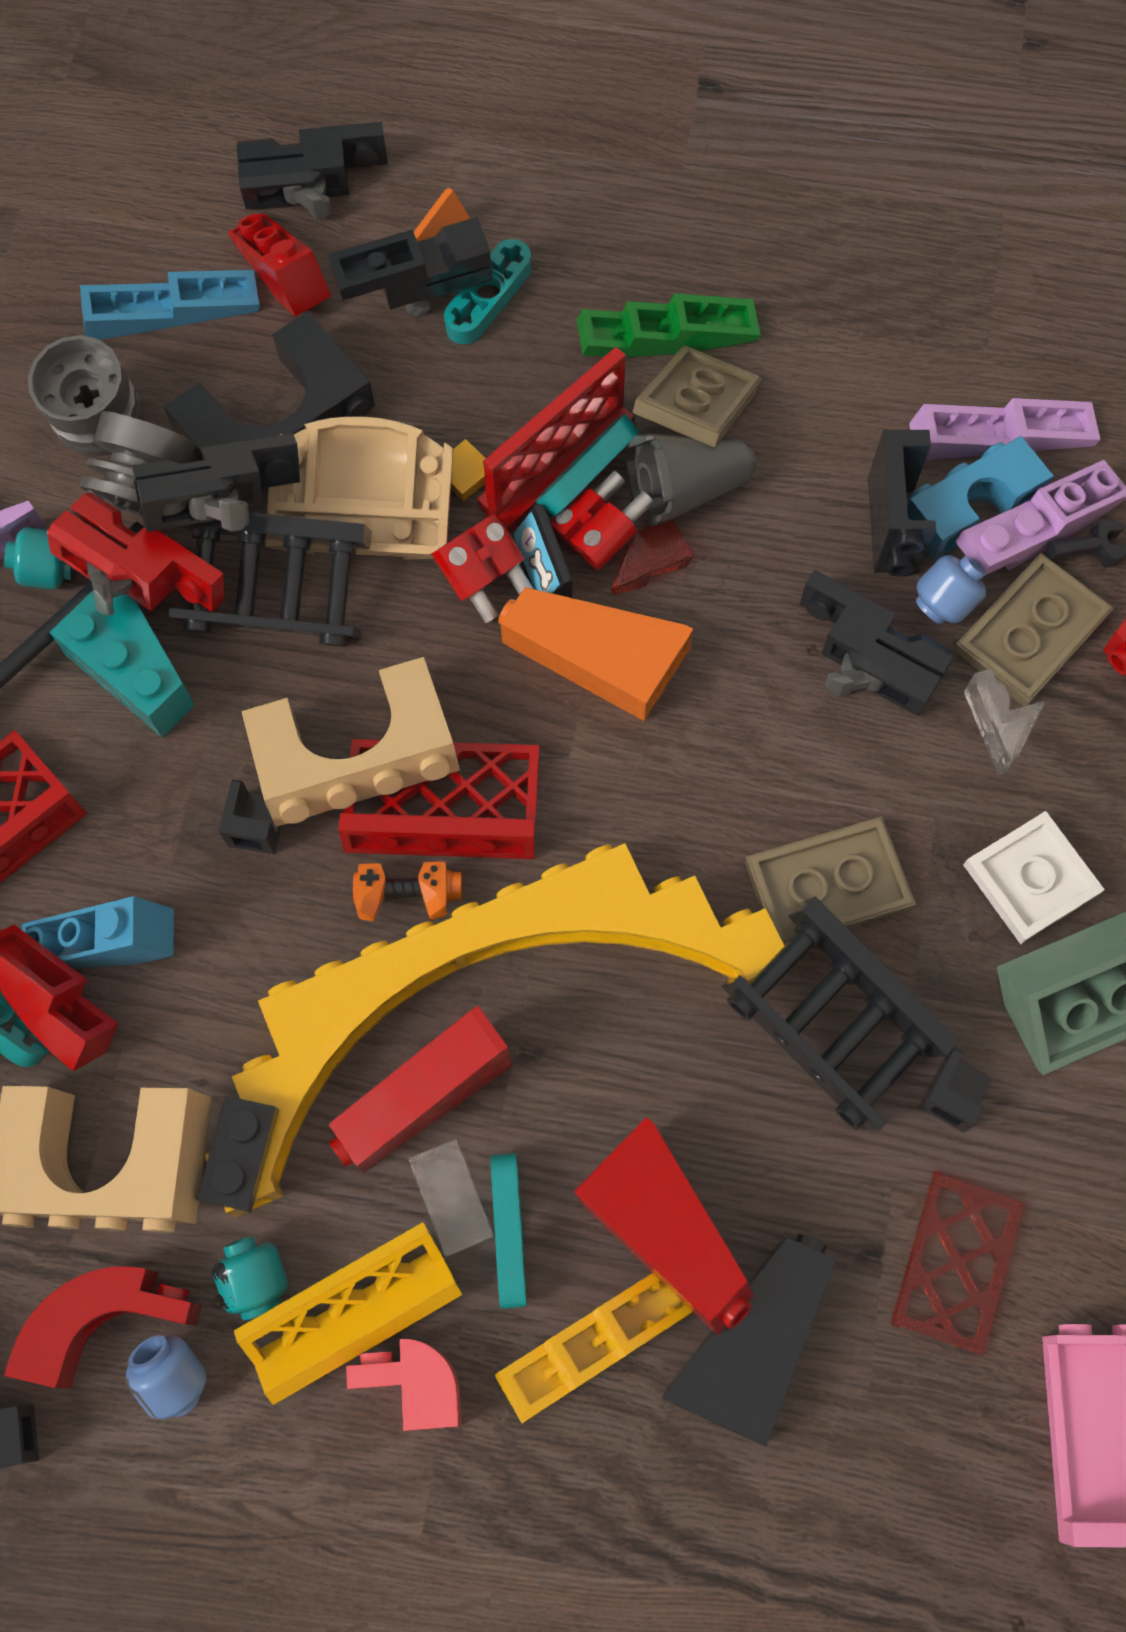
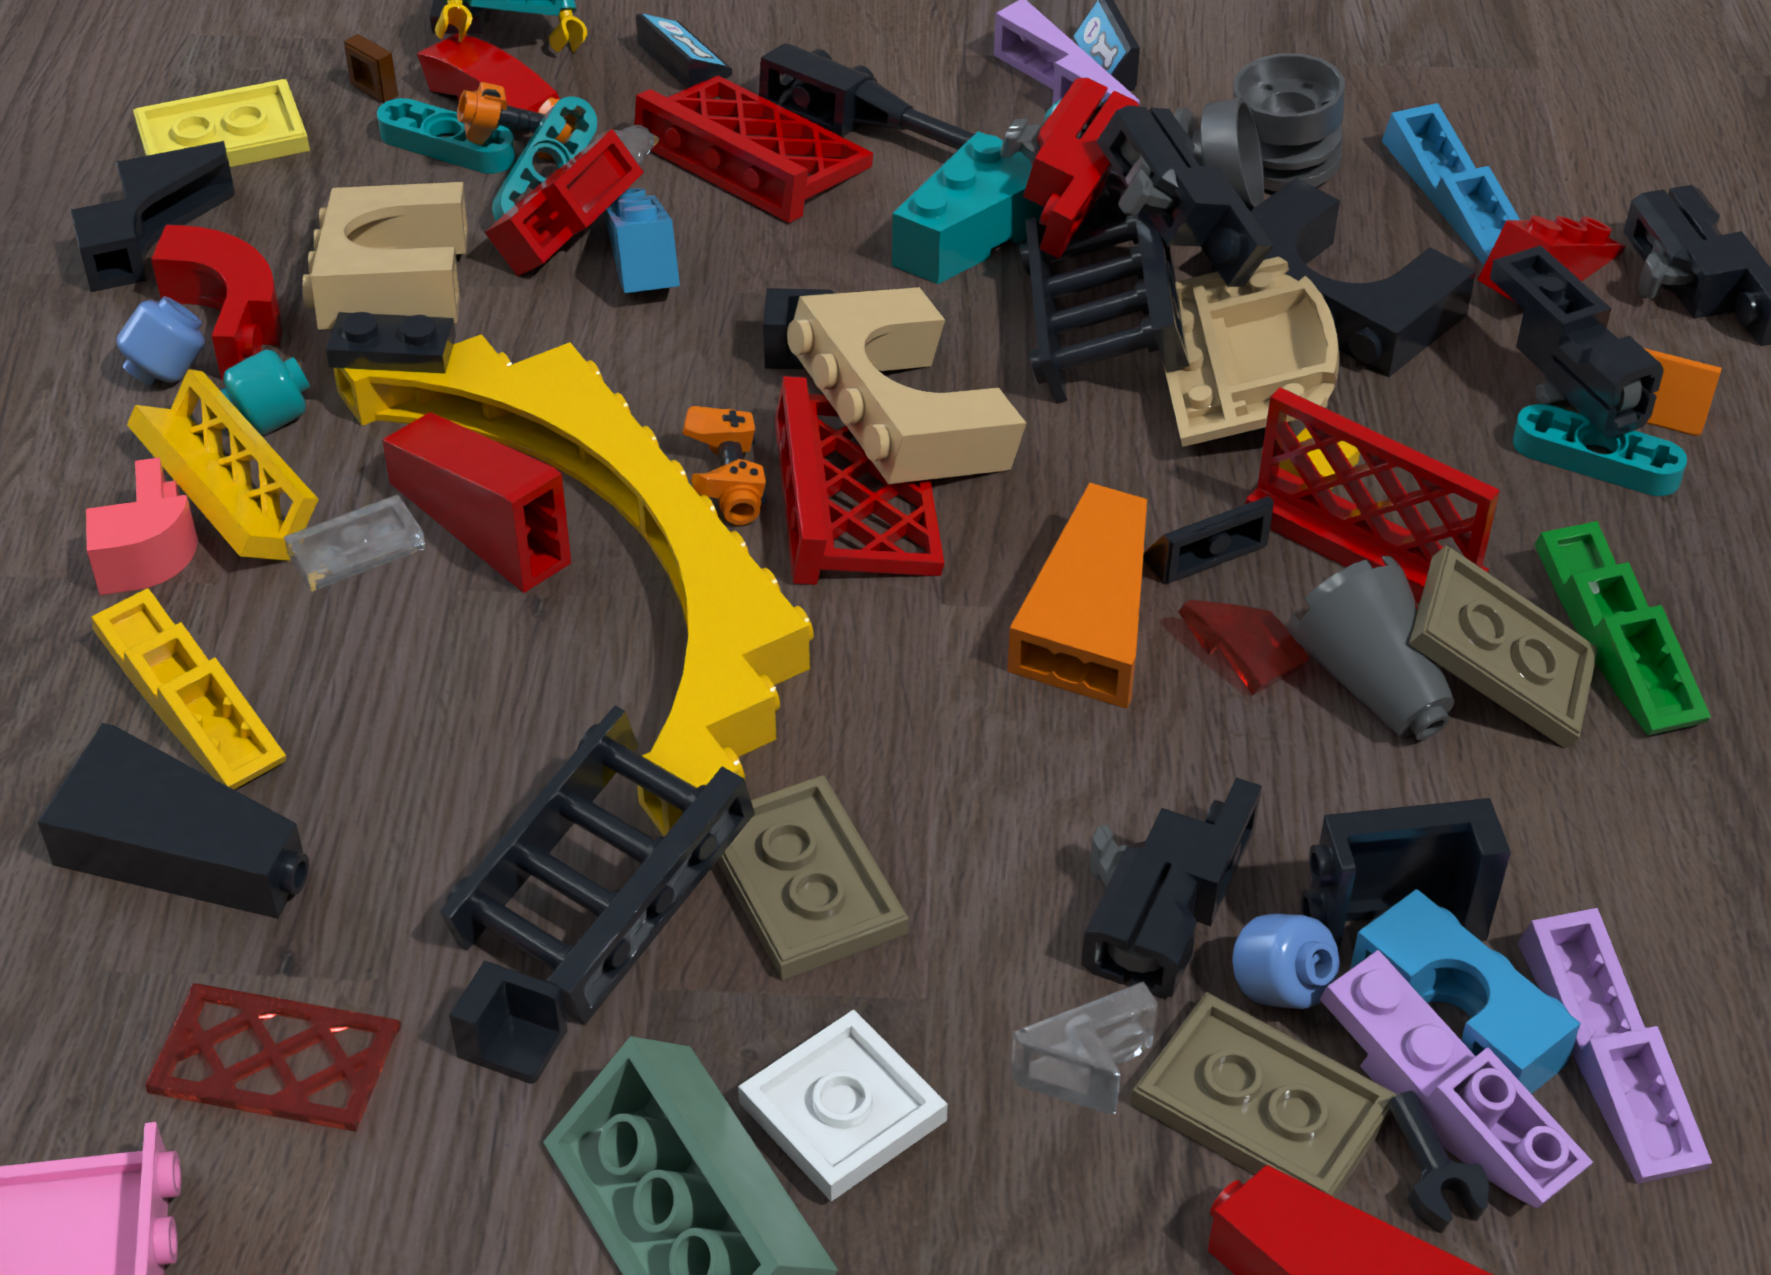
camera: 80 degrees right, 25 degrees down
(478, 559) = (1182, 463): red piece -> none
(508, 1231) = (271, 582): teal beam -> none
(587, 465) = (1343, 543): teal beam -> none
(598, 528) = (1265, 568): red piece -> none
(661, 1221) = (310, 711): red slope -> none

